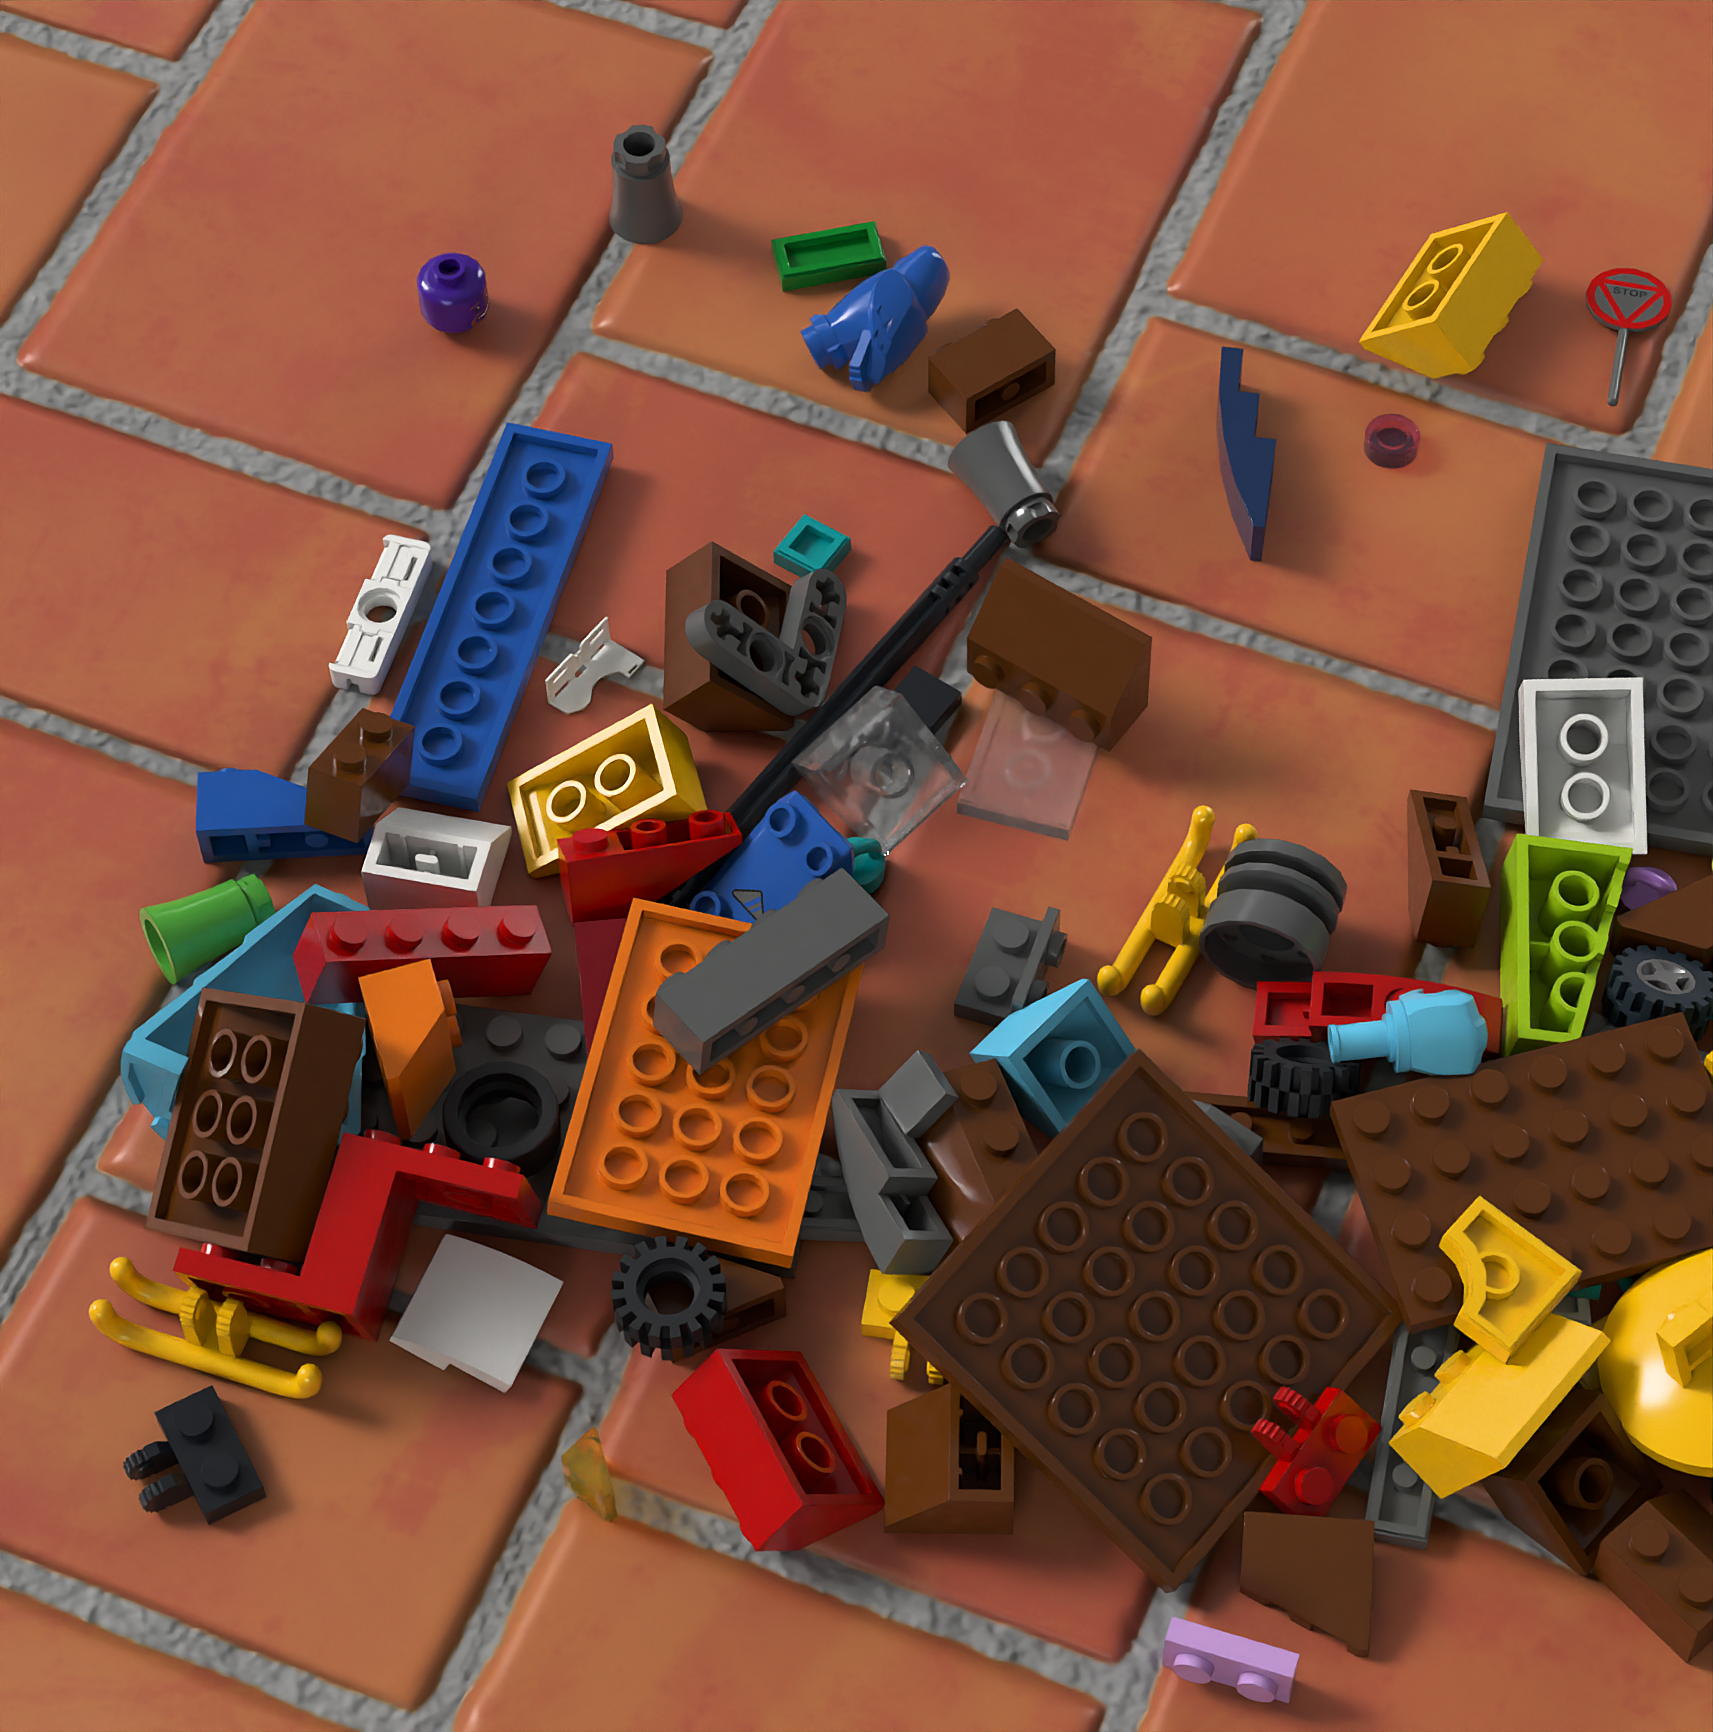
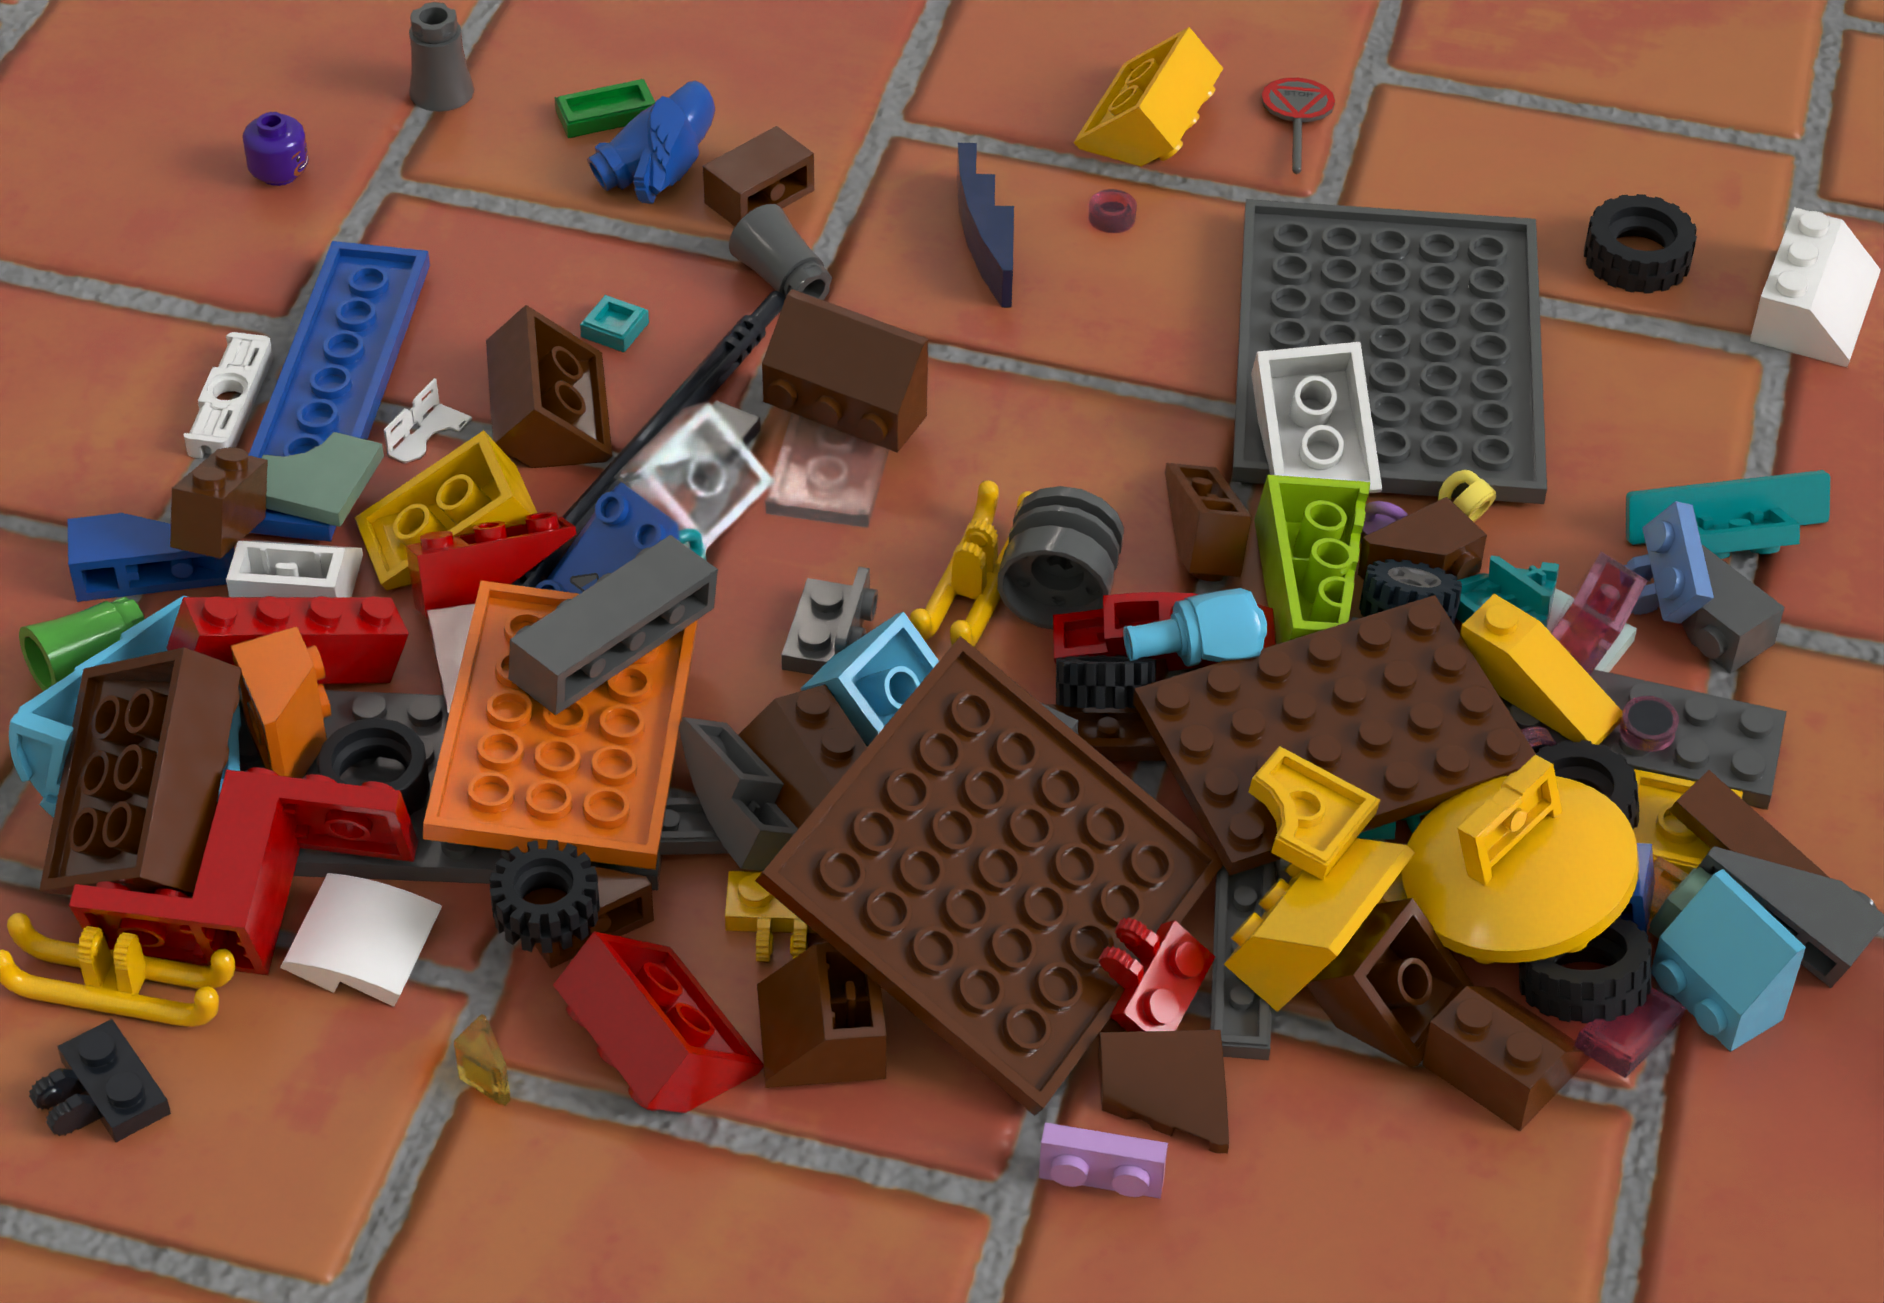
camera: 10 degrees left, 10 degrees down
(475, 742) = (323, 480): none -> sand green tile
(725, 635) = (552, 375): dark grey beam -> none
(917, 1094) = (758, 717): dark grey tile -> none

